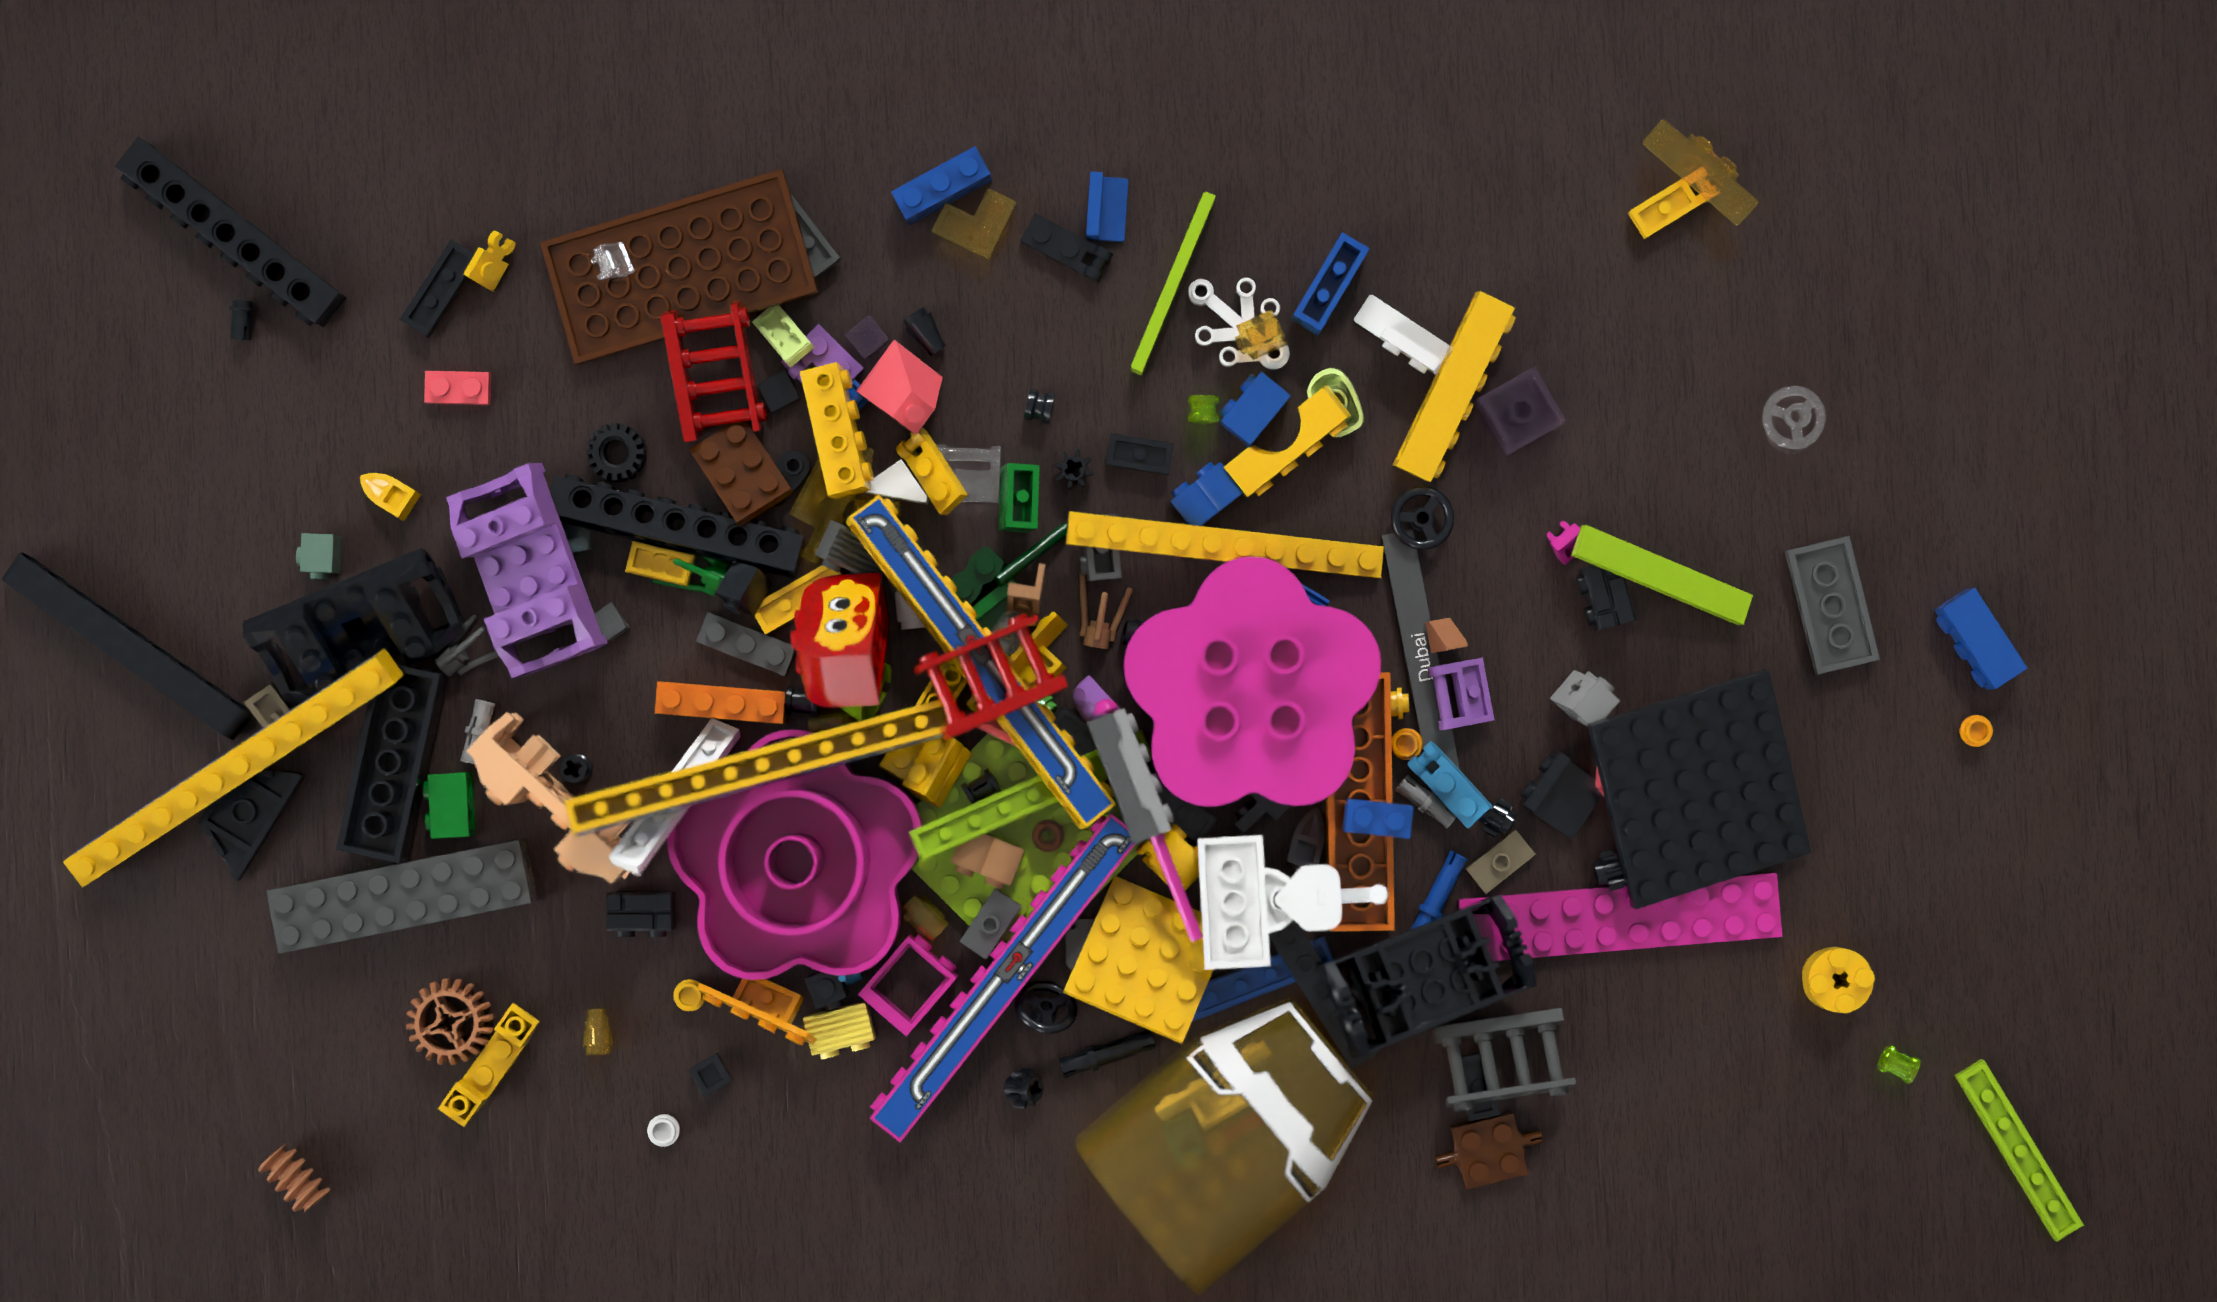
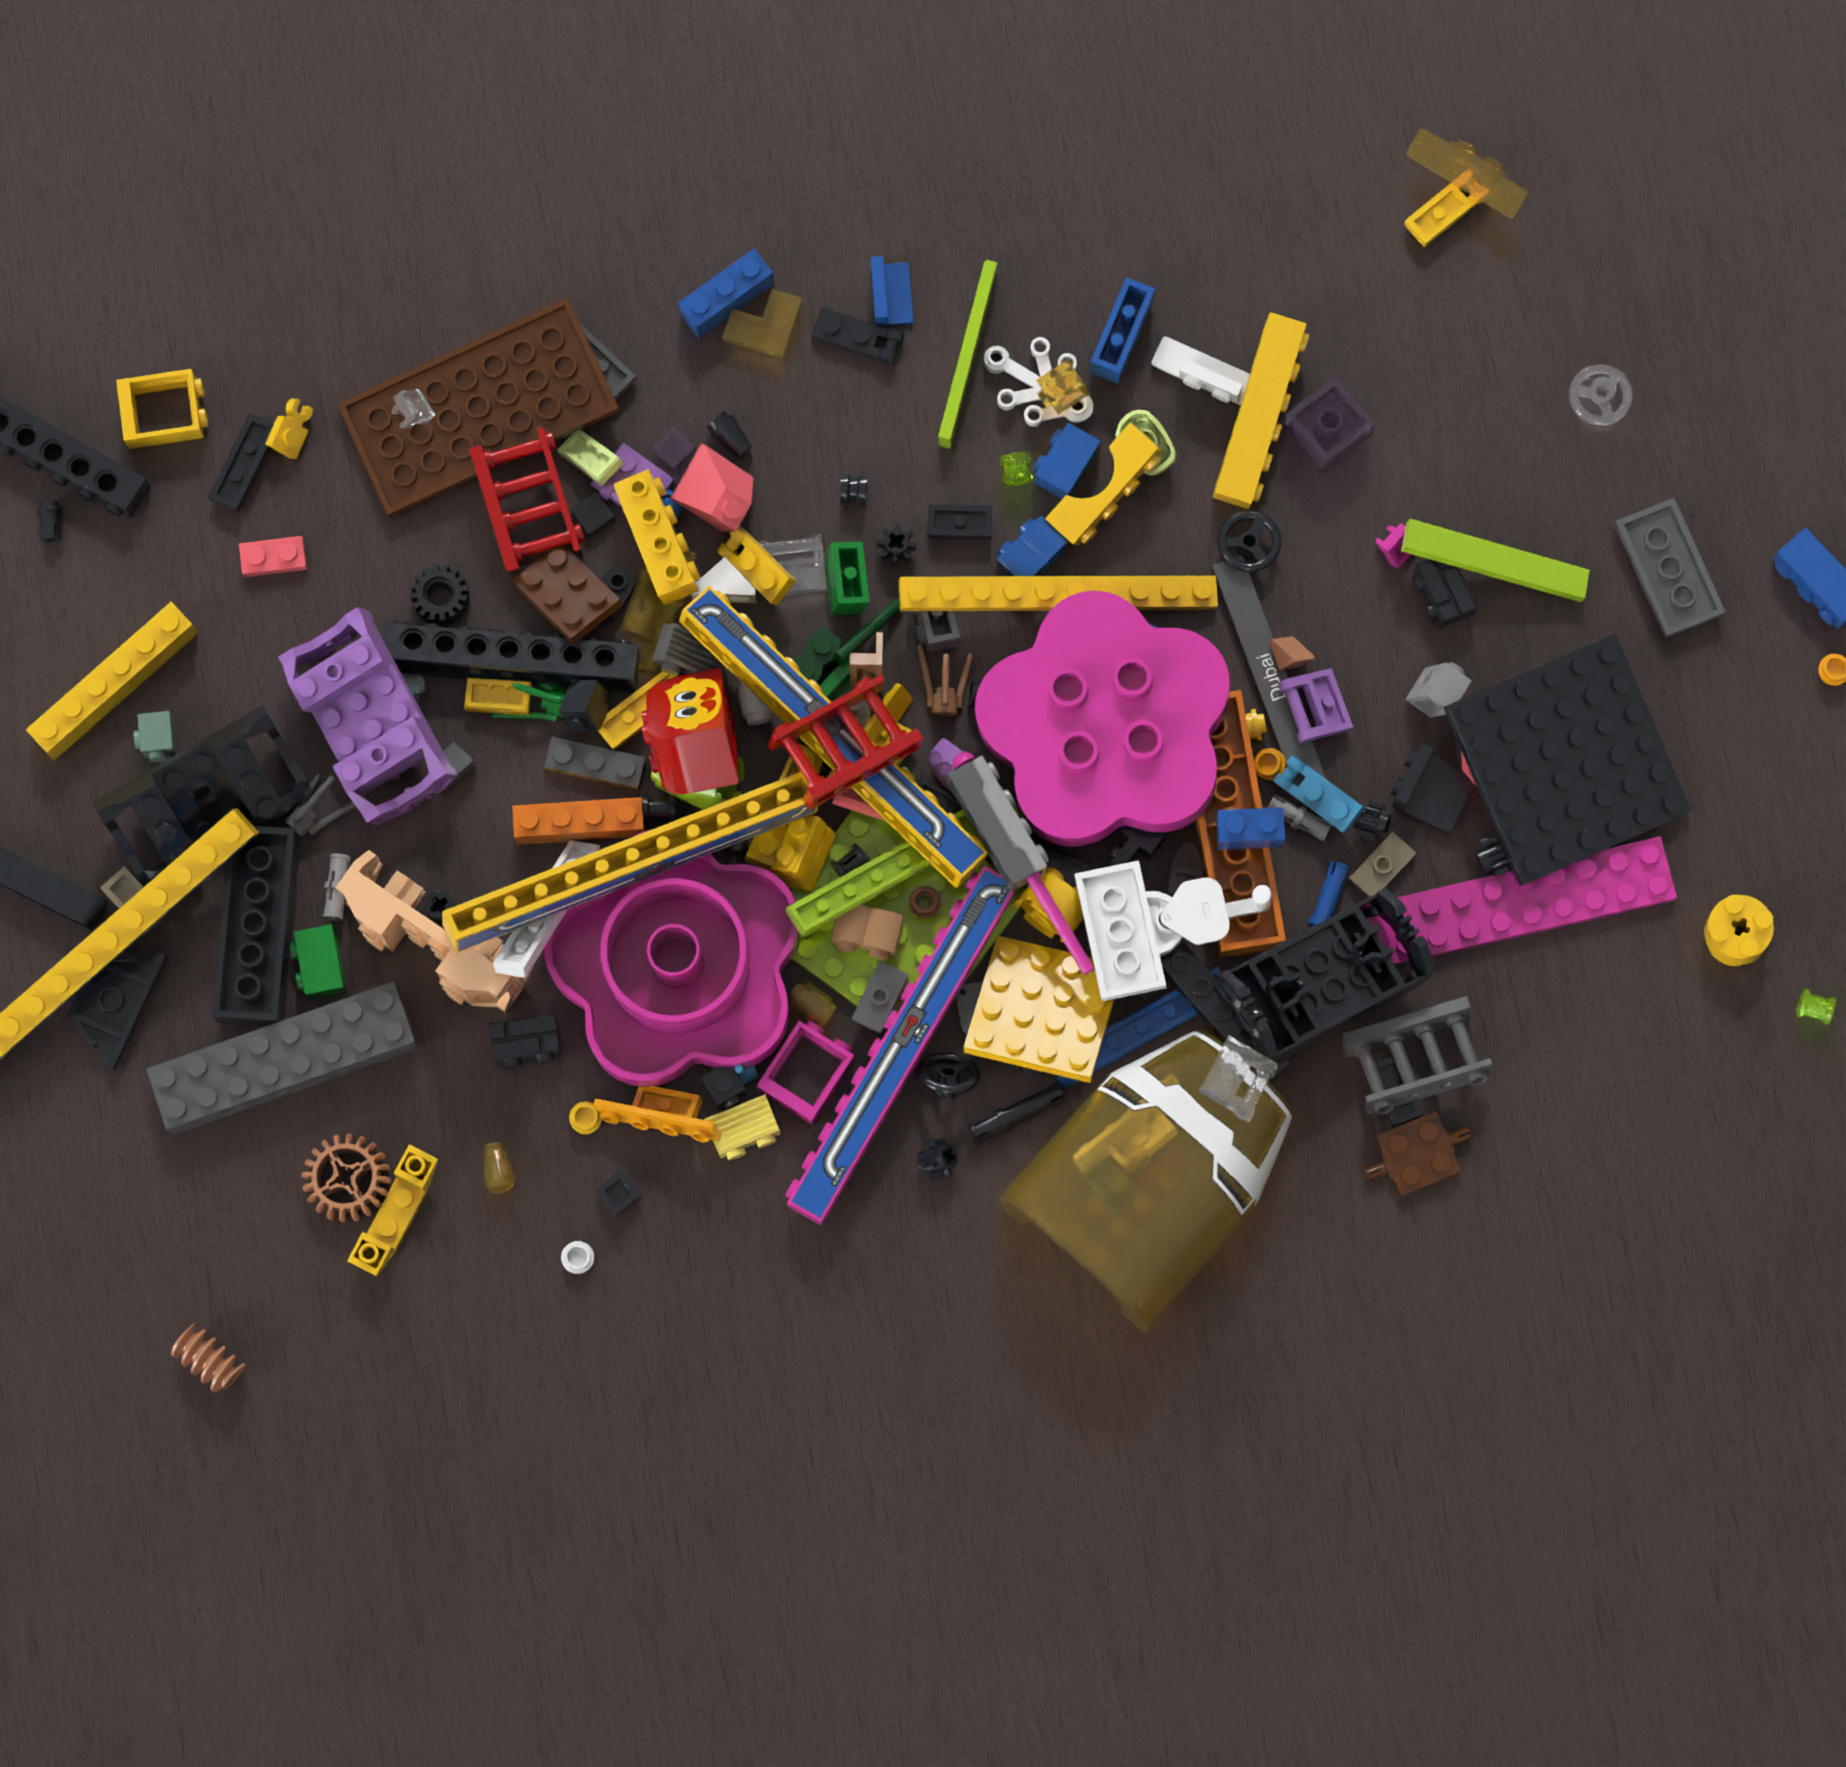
camera: 10 degrees left, 10 degrees down
(282, 493) = (112, 681): none -> yellow brick
(332, 220) = (133, 386): none -> yellow window
(389, 494) = (219, 667): yellow plate -> none
(1317, 1069) = (1228, 1073): none -> clear plate

